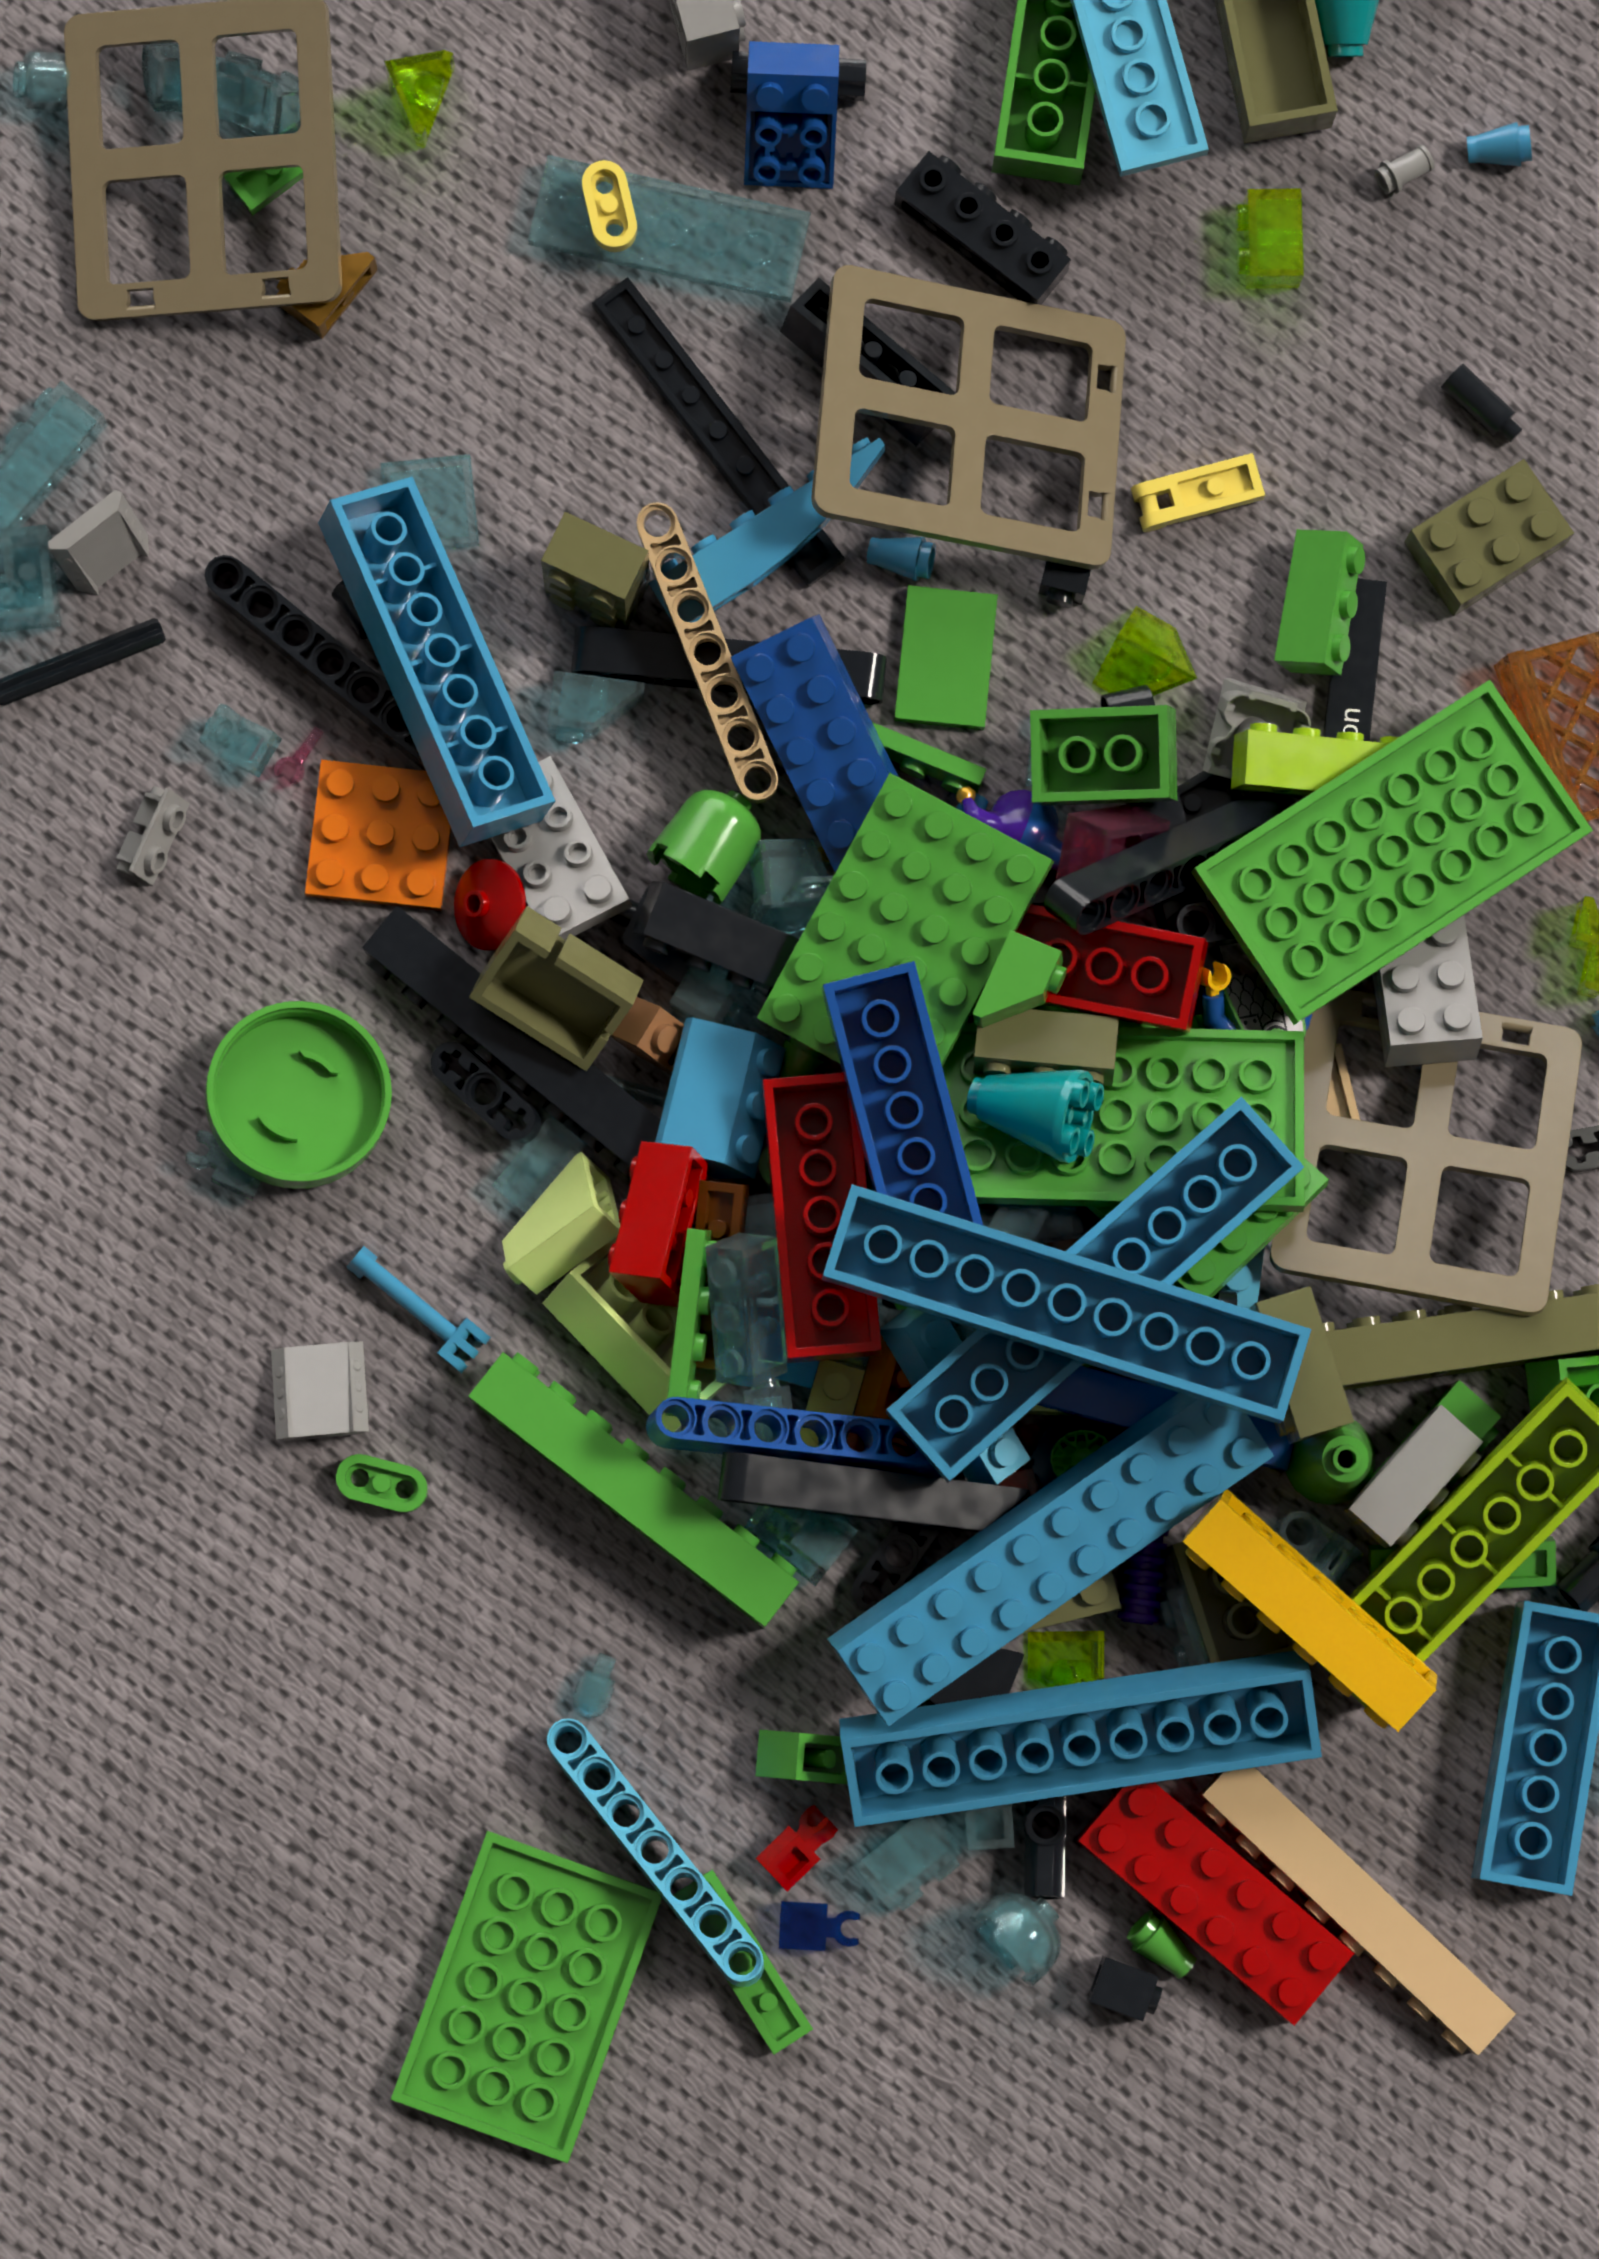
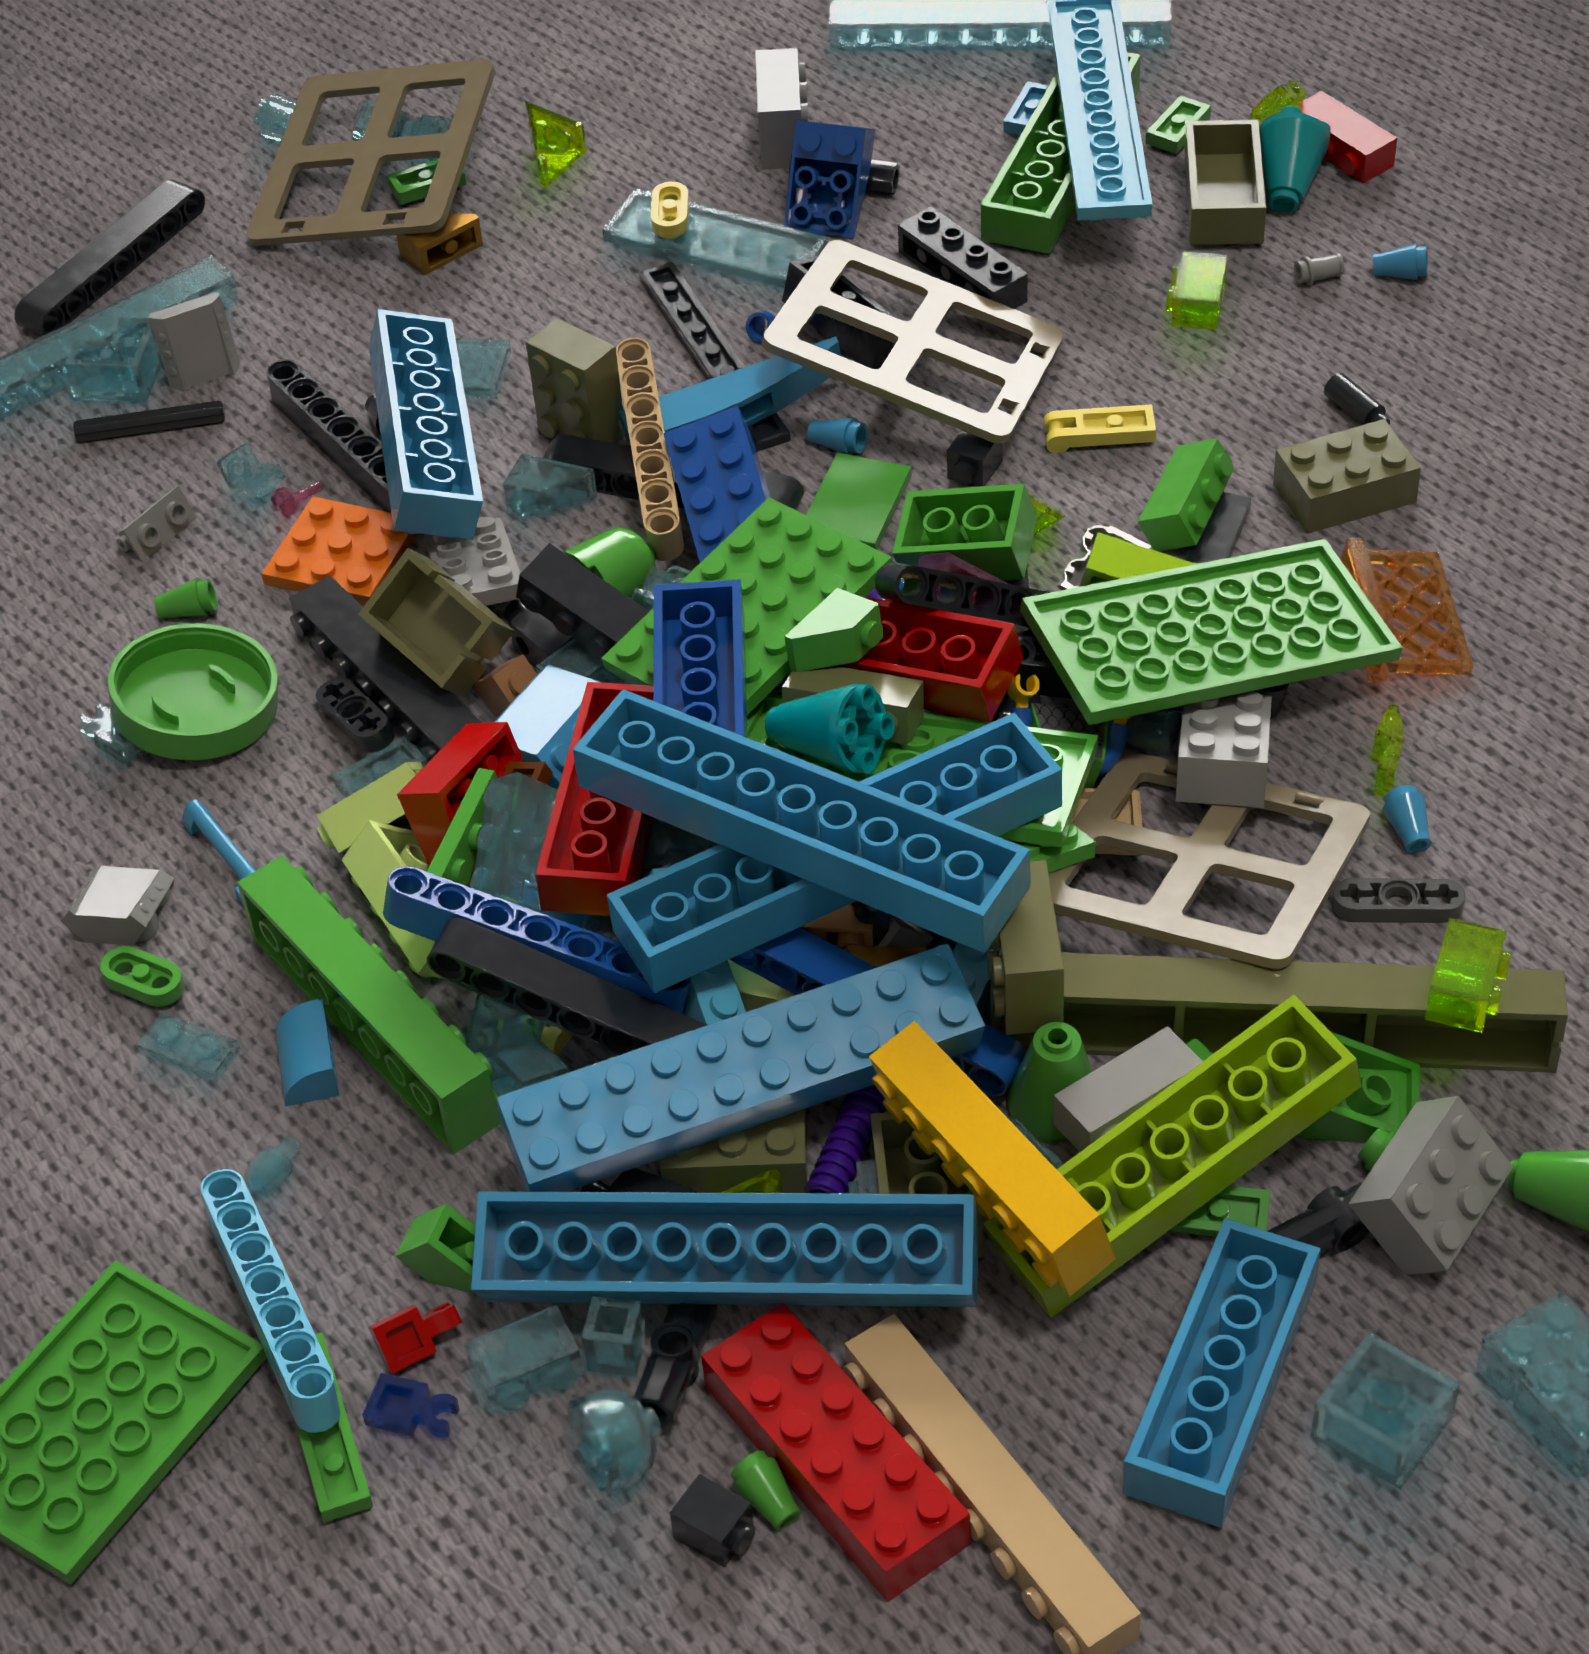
camera: 25 degrees right, 35 degrees down
(235, 950) = (188, 600): none -> bright green cone
(459, 1557) = (189, 1047): none -> clear light blue plate
(583, 1550) = (306, 1054): none -> dark azure brick
(763, 388) = (756, 324): none -> blue hinge

